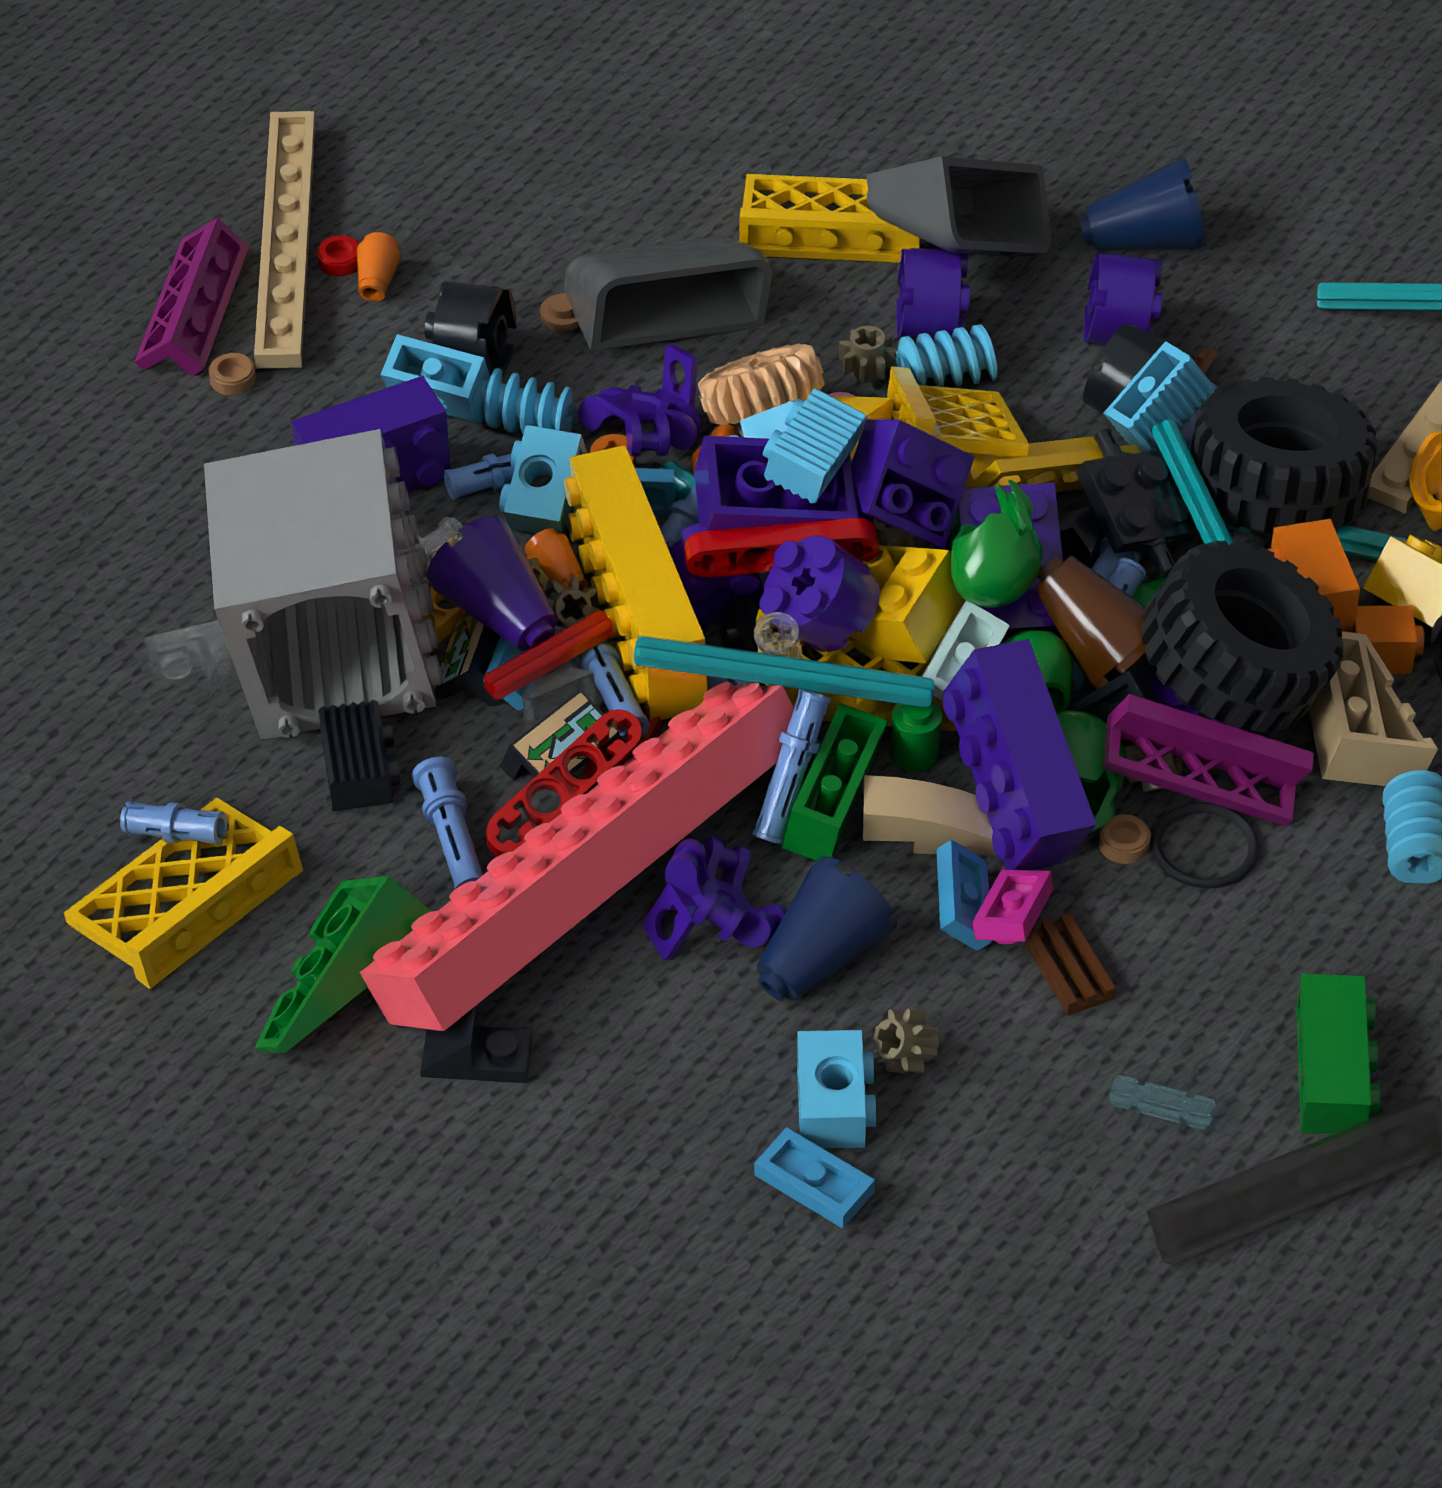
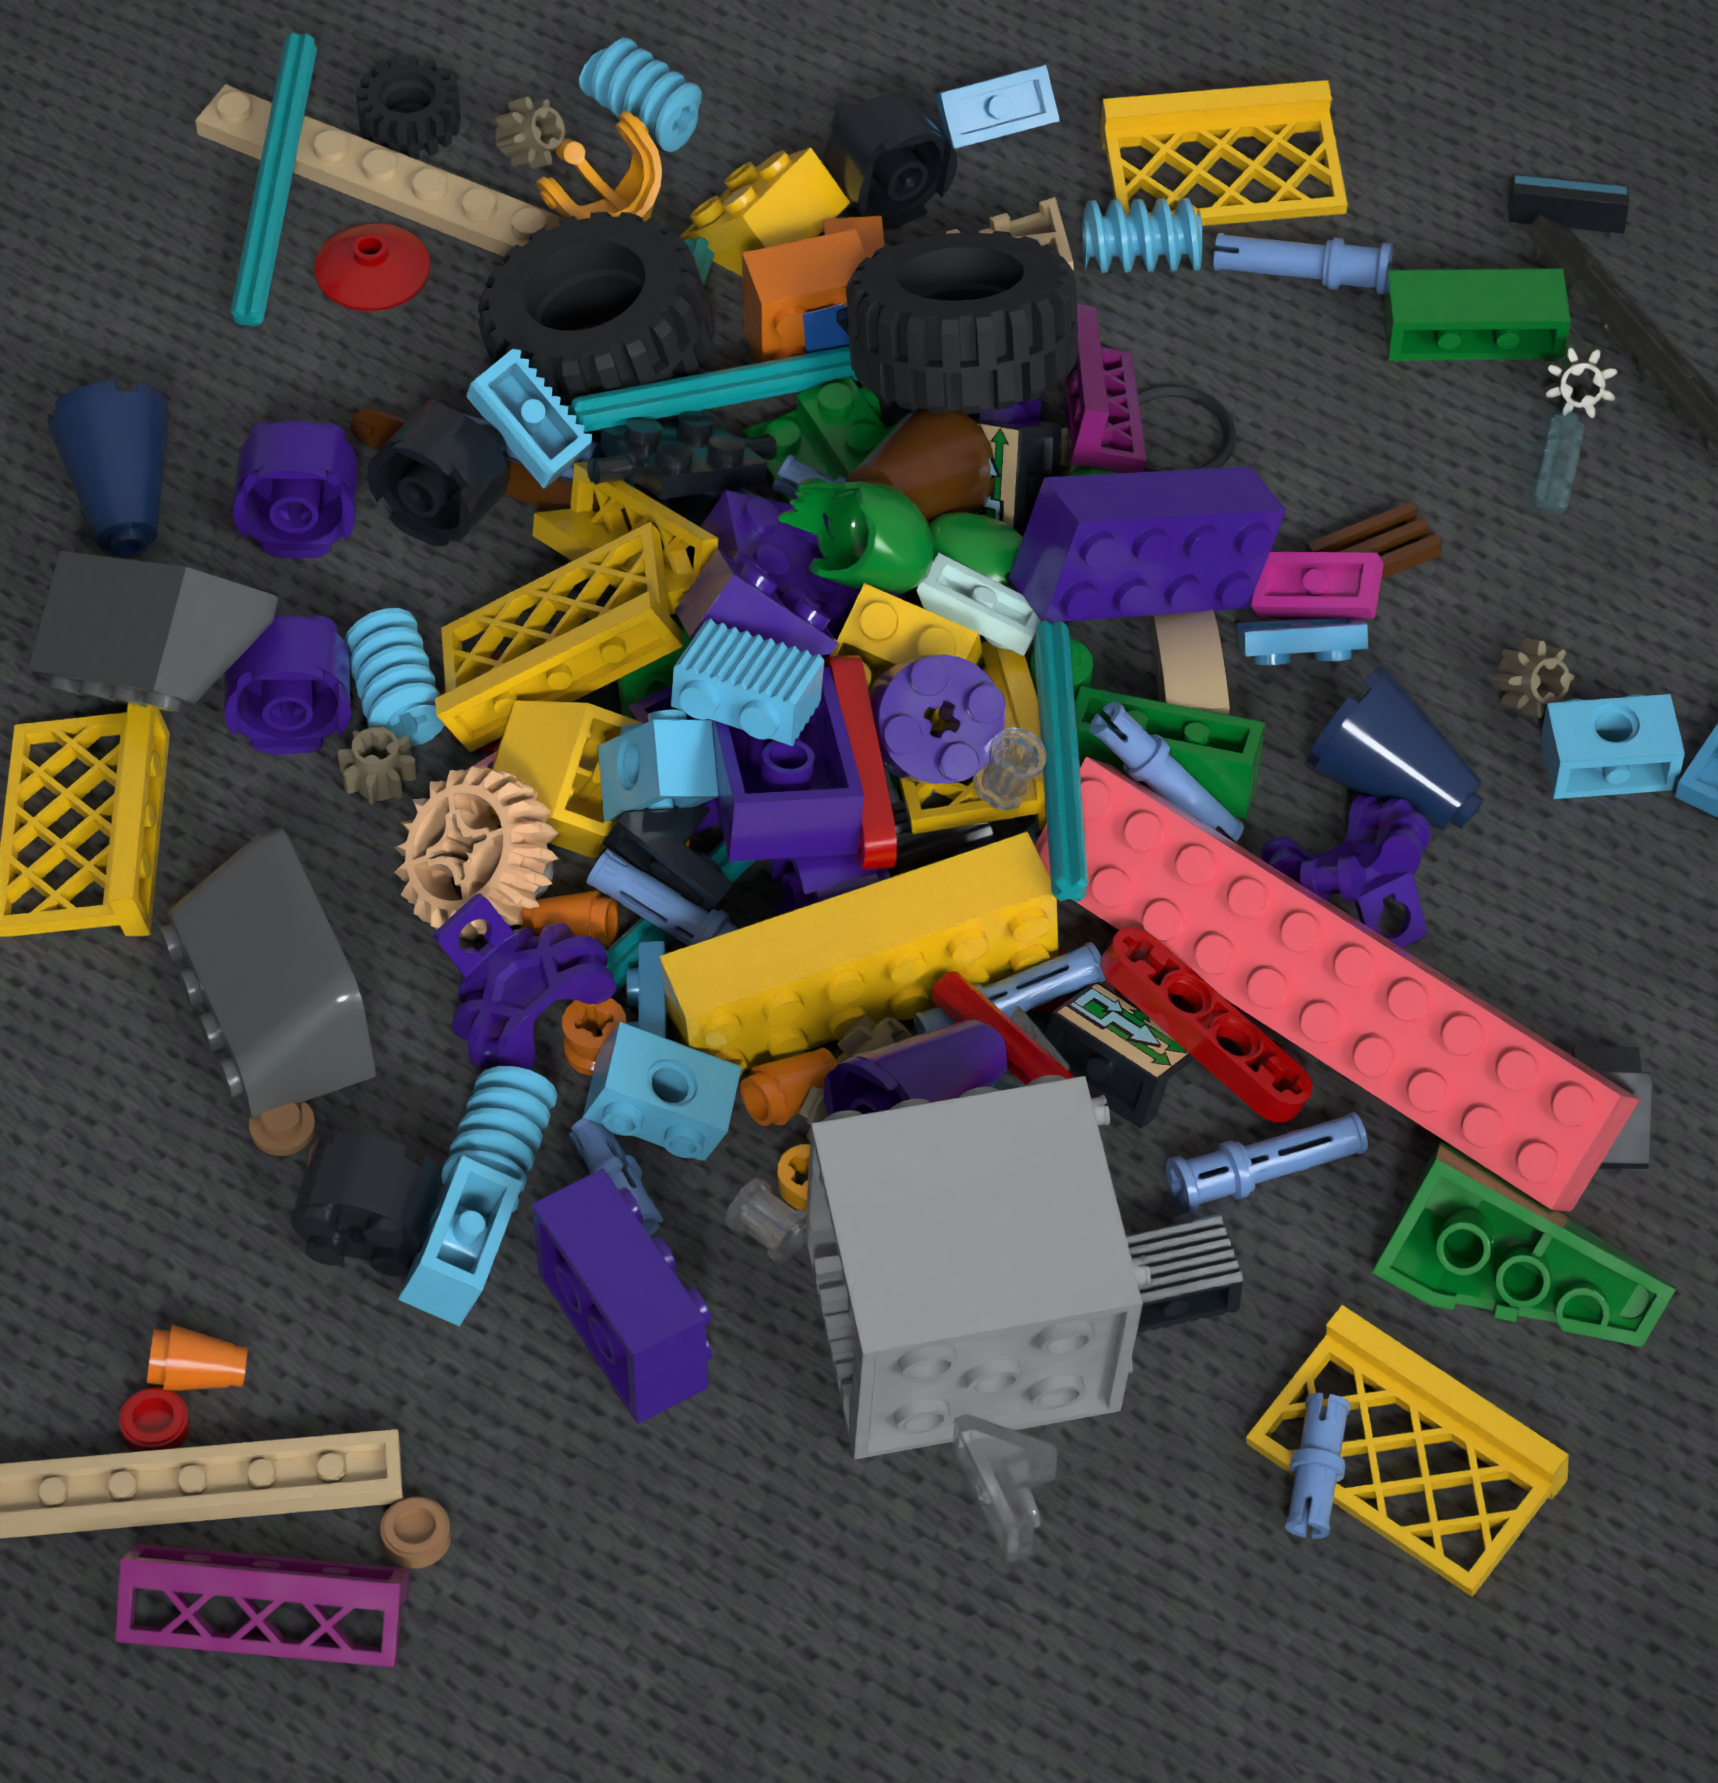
camera: 95 degrees left, 5 degrees up
(1248, 1117) = (1584, 396): none -> gear
(1383, 370) = (372, 267): none -> red dish
(1396, 959) = (1332, 263): none -> medium blue pin

